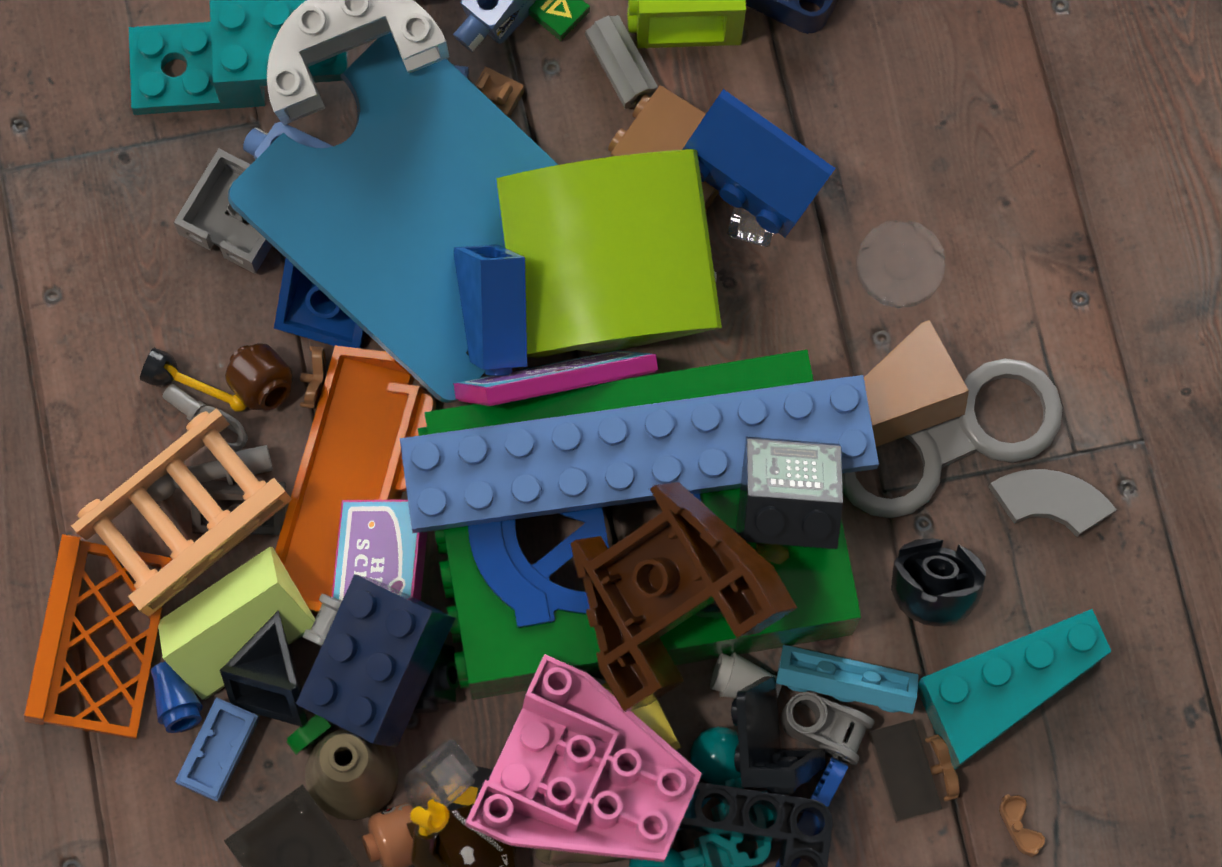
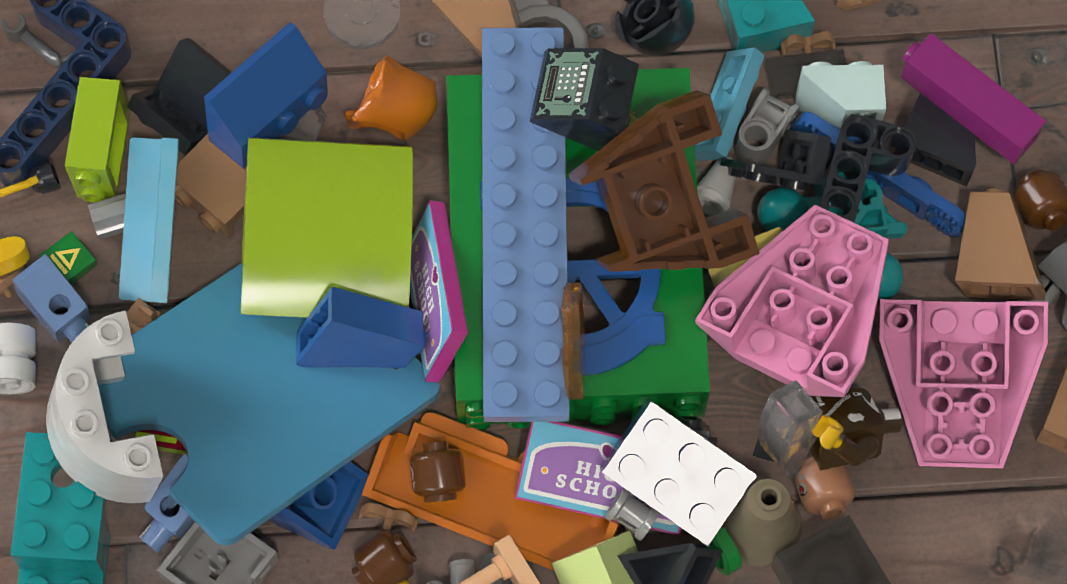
camera: 80 degrees left, 5 degrees down
(360, 415) = (437, 472): none -> reddish brown head
(497, 522) = (573, 341): none -> clear orange tile
(605, 77) = (148, 219): none -> medium azure panel
(762, 85) = (177, 102): none -> black bracket
(785, 310) = (395, 101): none -> orange piece
(866, 814) = (842, 91): none -> light aqua slope

